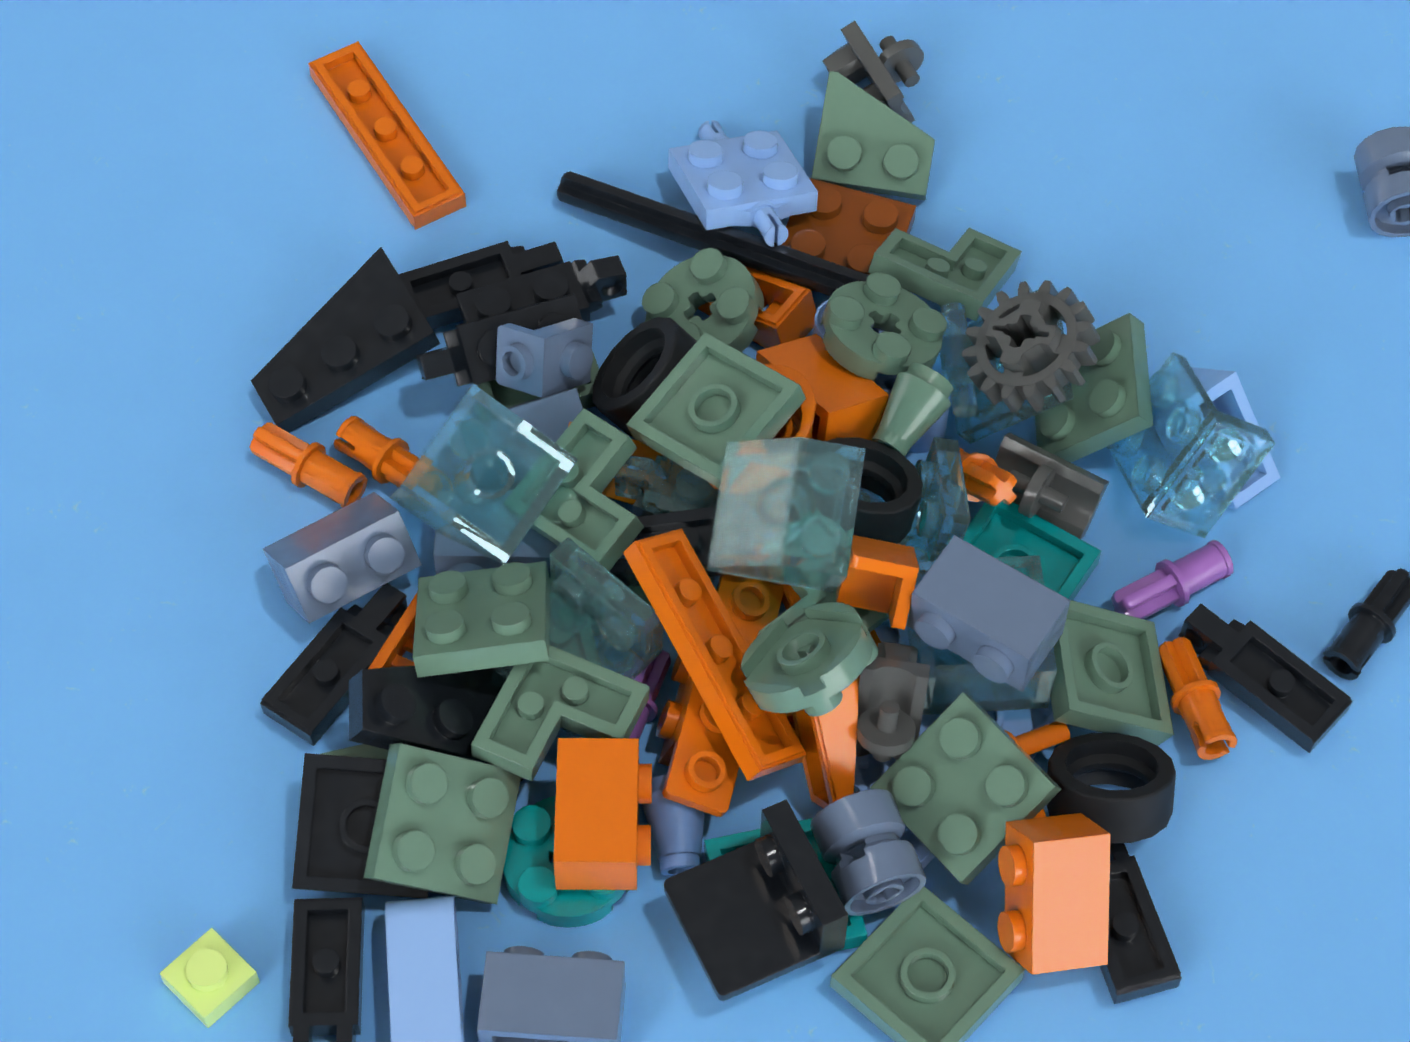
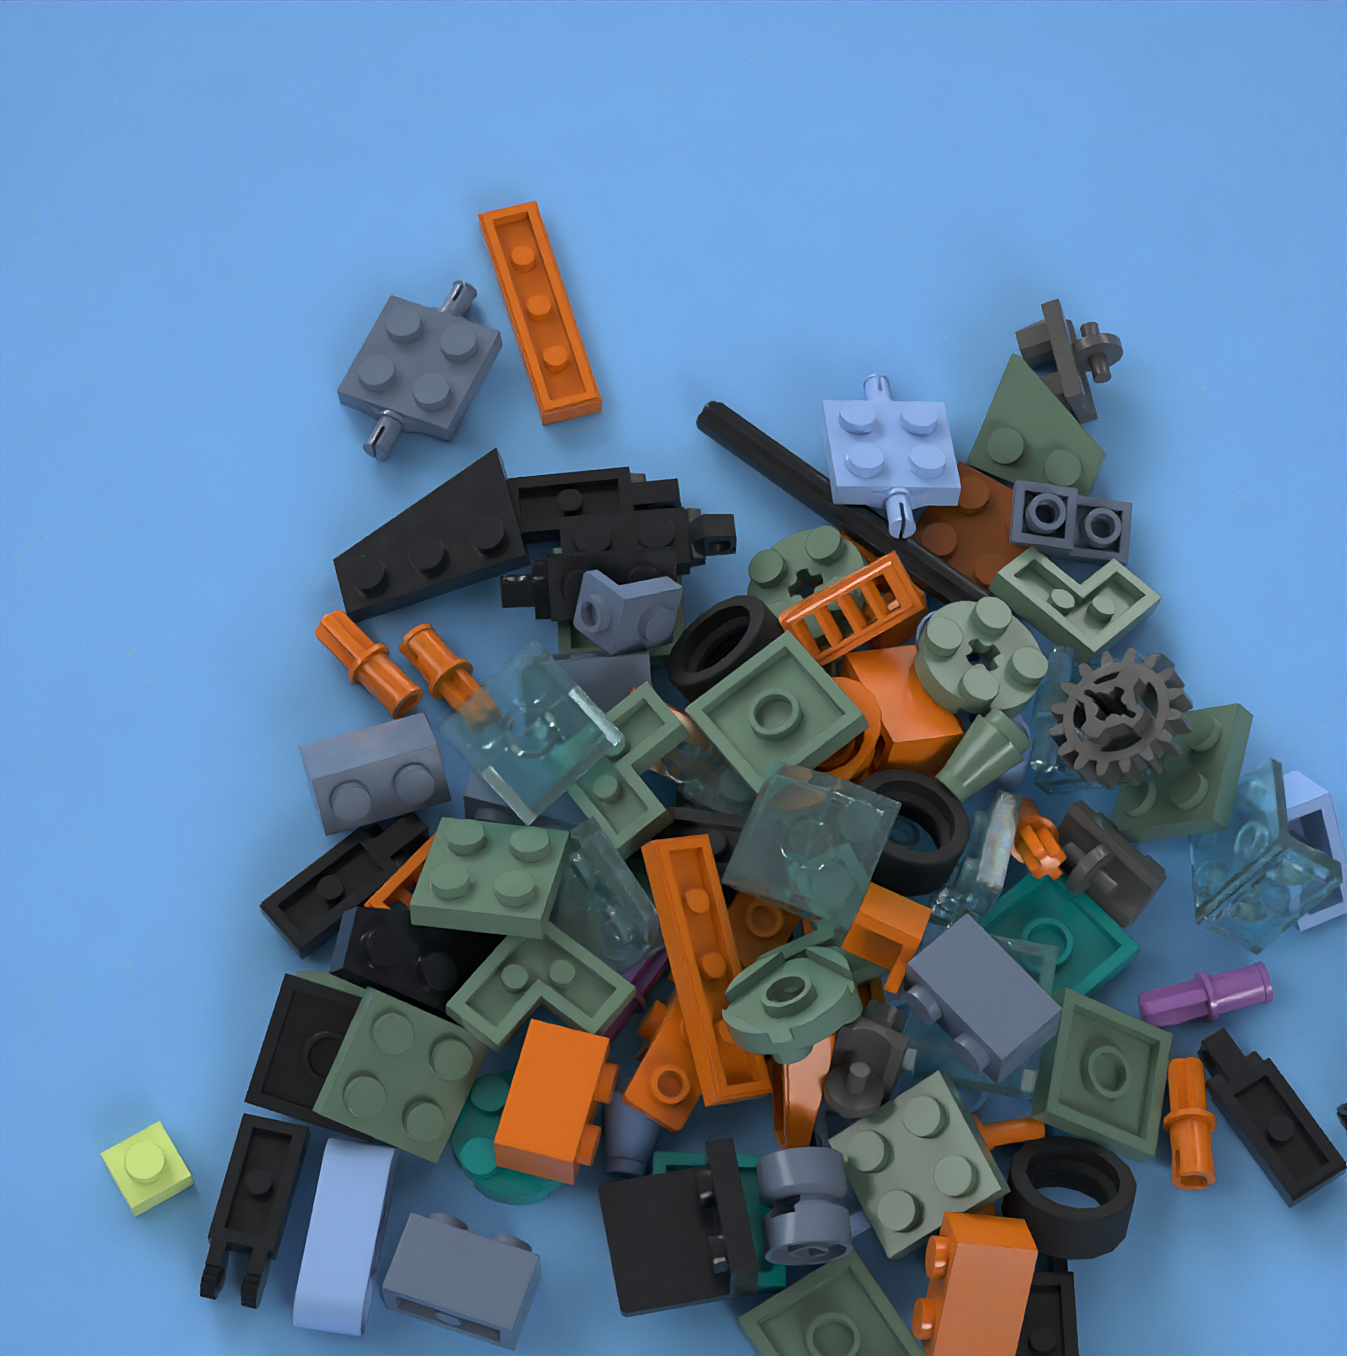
camera: 15 degrees right, 5 degrees up
(288, 202) = (419, 368): none -> sand blue plate
(721, 310) = (839, 644): none -> orange slope
(920, 206) = (1069, 524): none -> sand blue slope

